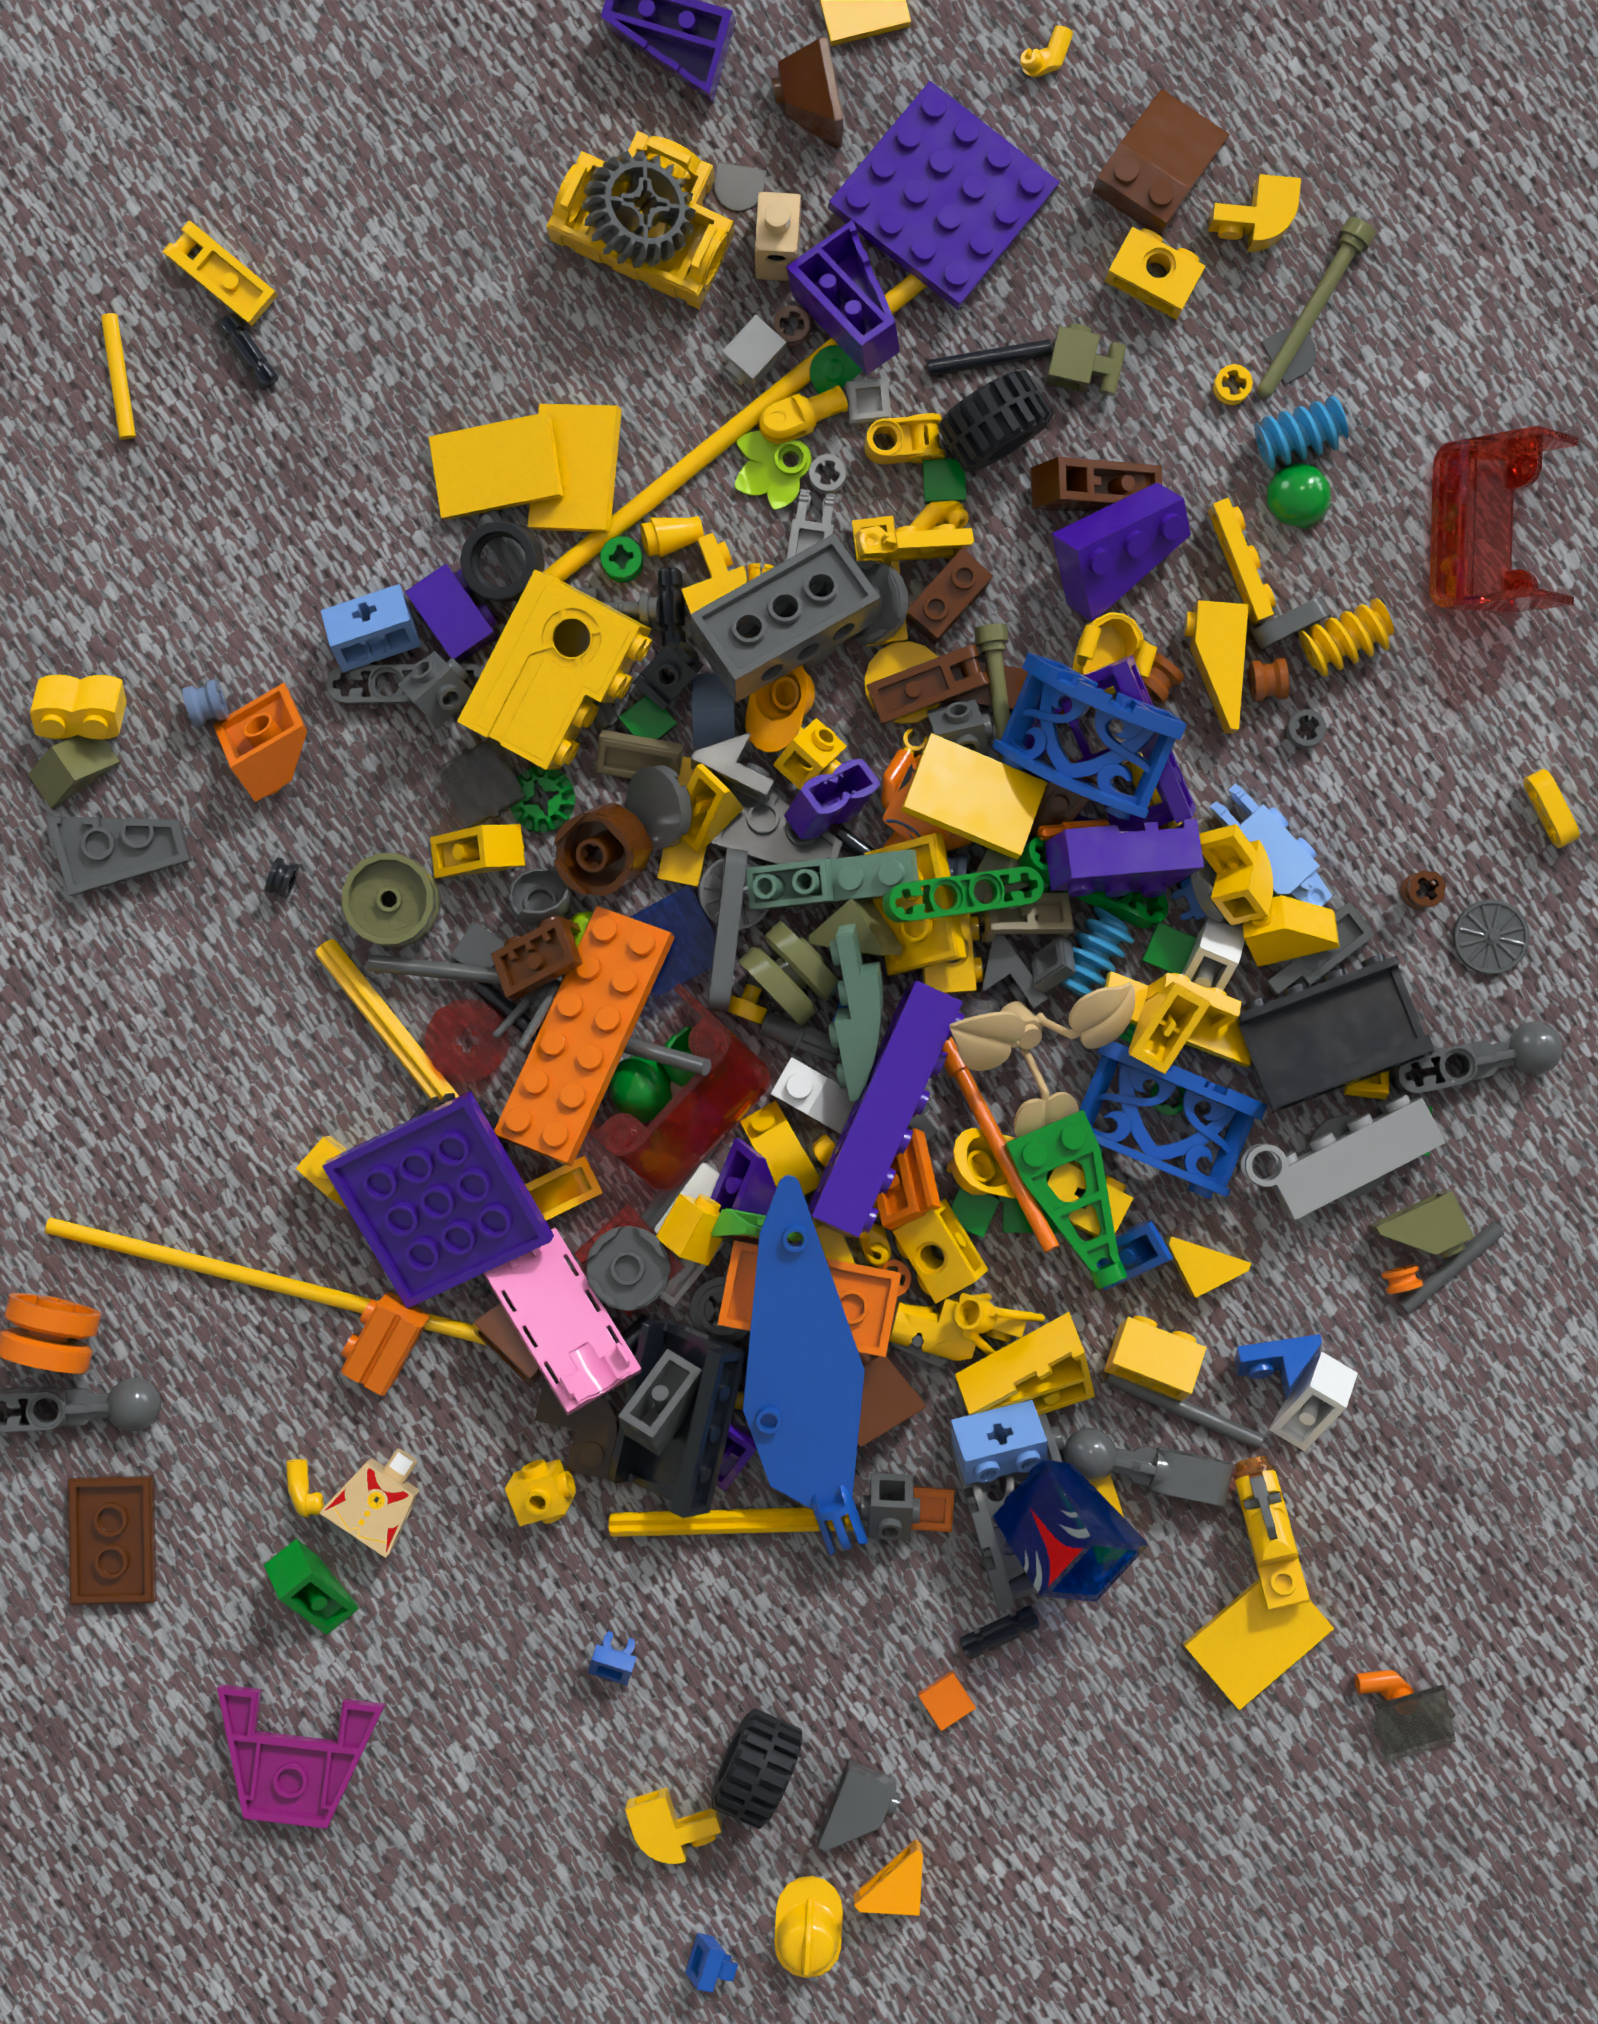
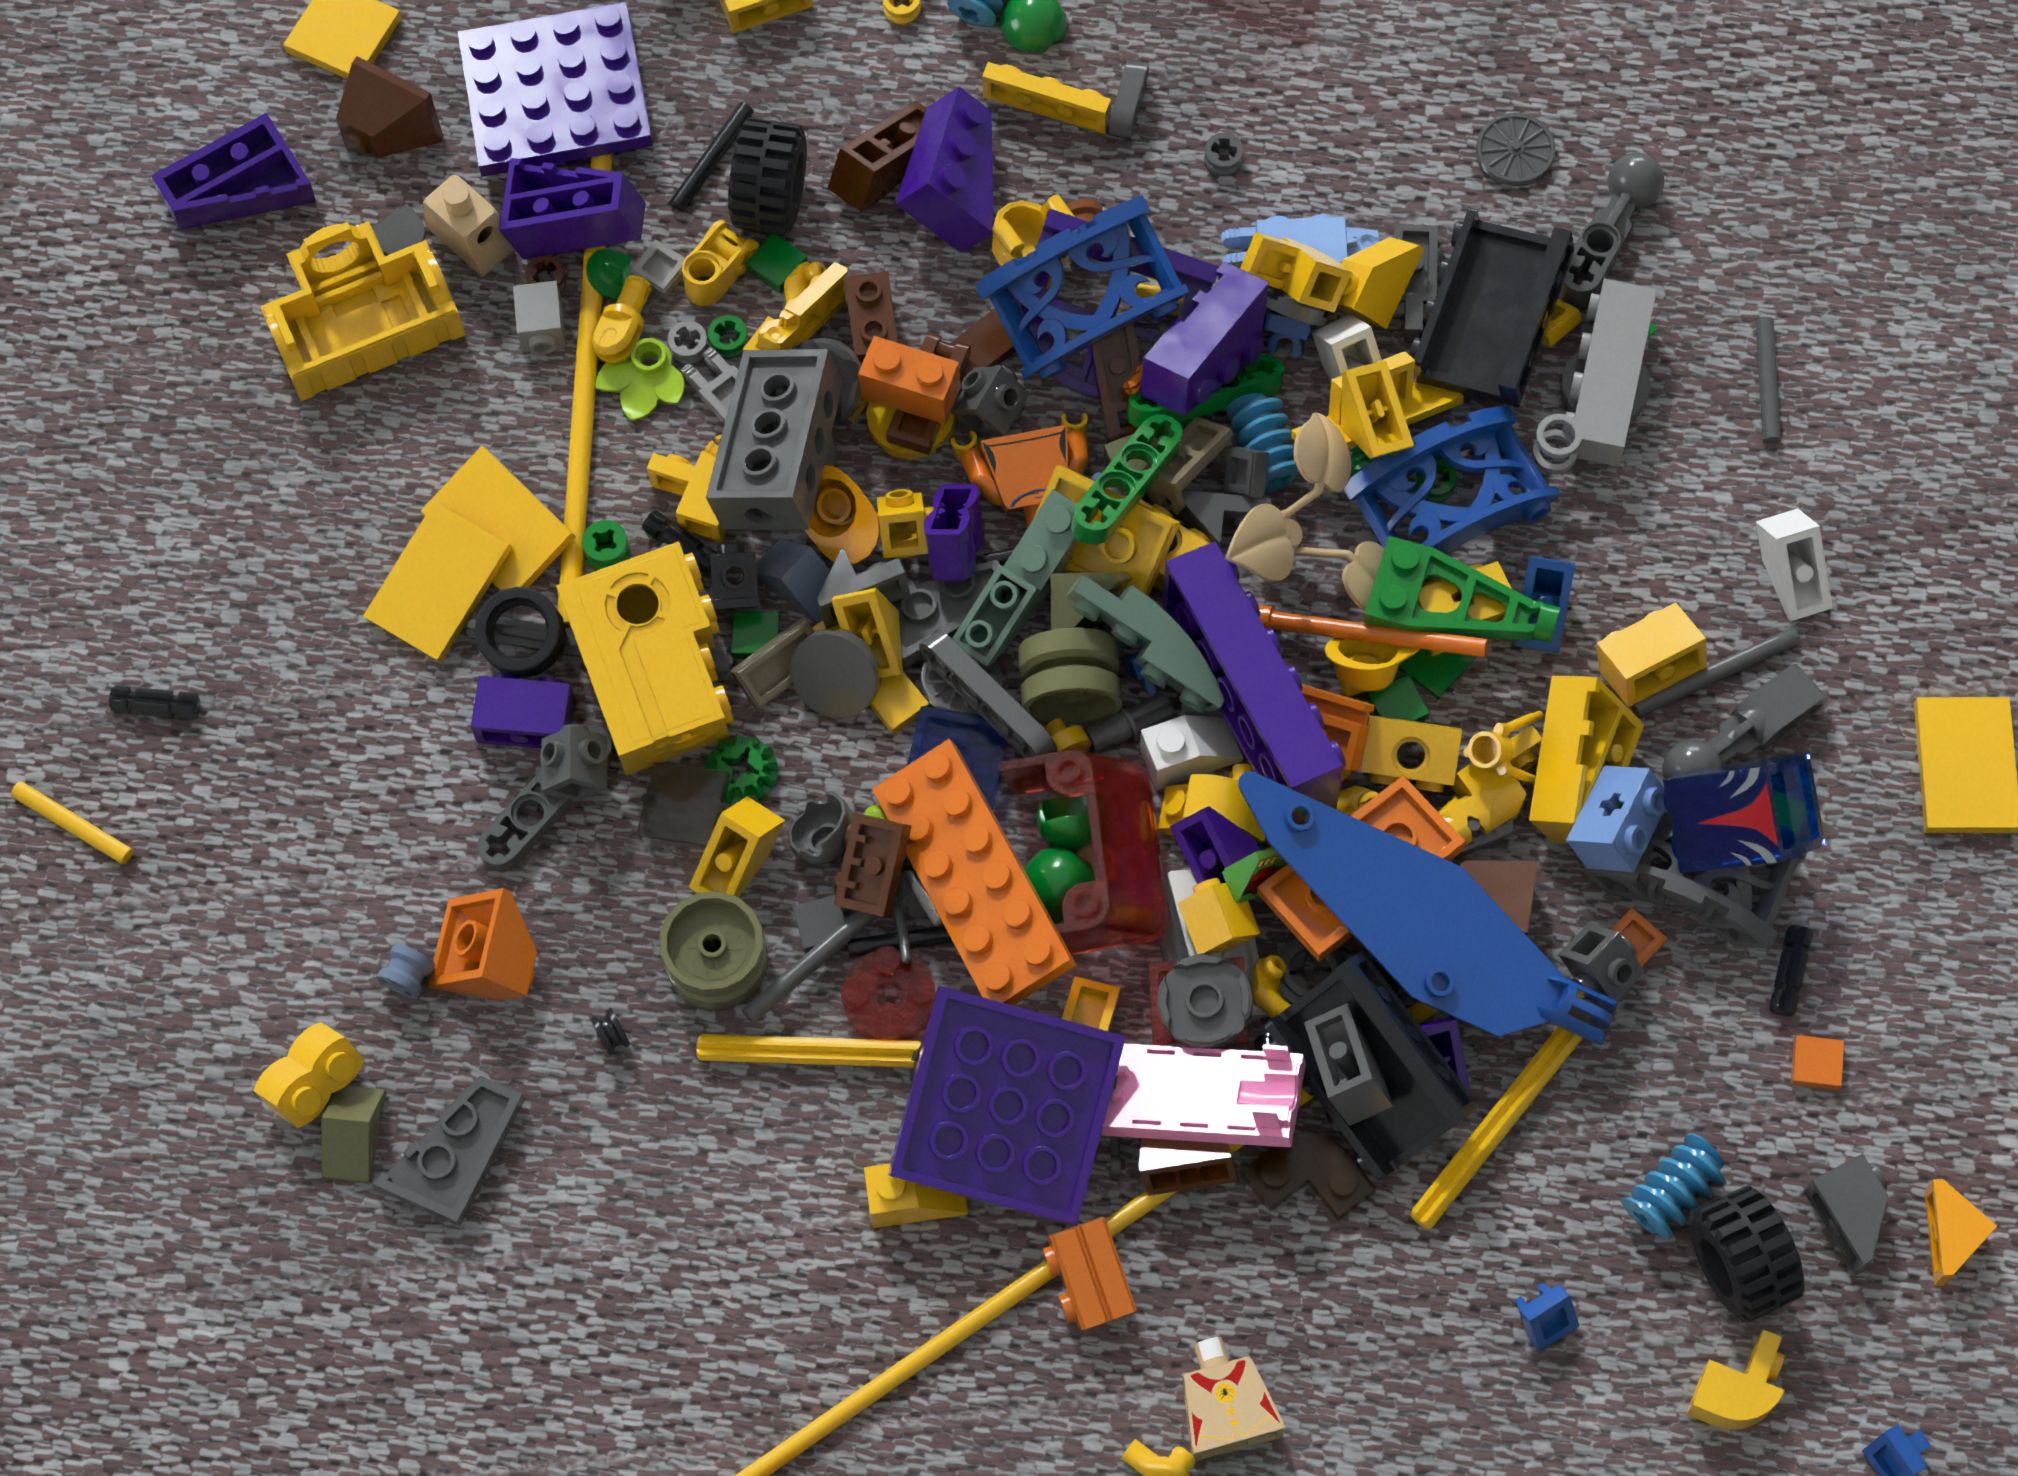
camera: 45 degrees left, 20 degrees down
(221, 274) = (72, 670): yellow plate -> none
(370, 628) = (473, 782): medium blue brick -> none
(540, 1492) = (1323, 1250): yellow brick -> none
(601, 850) = (811, 762): reddish brown brick -> none
(653, 193) = (349, 297): dark grey gear -> none
(668, 535) = (621, 495): yellow cone -> none
(668, 1056) = (1053, 818): dark grey bar -> none
(684, 1292) = (1266, 985): none -> yellow arm
(772, 1680) = (1675, 1186): none -> dark azure piece
(808, 1927) = (1934, 1349): yellow piece -> none
(844, 494) = (724, 323): none -> green bush
(915, 669) = (909, 380): none -> orange brick
(974, 796) = (1053, 414): yellow tile -> none
(992, 640) = (938, 320): olive piece -> none
(1076, 360) = (779, 93): olive brick -> none
(1168, 949) = (1309, 388): green tile -> none
(1203, 1267) = (1604, 558): yellow slope -> none
(1219, 653) = (1107, 168): yellow slope -> none
(1268, 679) = (1159, 148): dark orange wheel -> none
(1270, 1534) = (1883, 680): yellow plate -> none
(1288, 1356) = (1733, 557): blue slope -> none
(1347, 636) = (1178, 66): yellow piece -> none
(1402, 1279) = (1745, 419): orange bush -> none
(1428, 1225) = (1717, 366): olive slope -> none
(1434, 894) = (1442, 159): reddish brown bush -> none
(1551, 808) = (1449, 28): yellow beam -> none

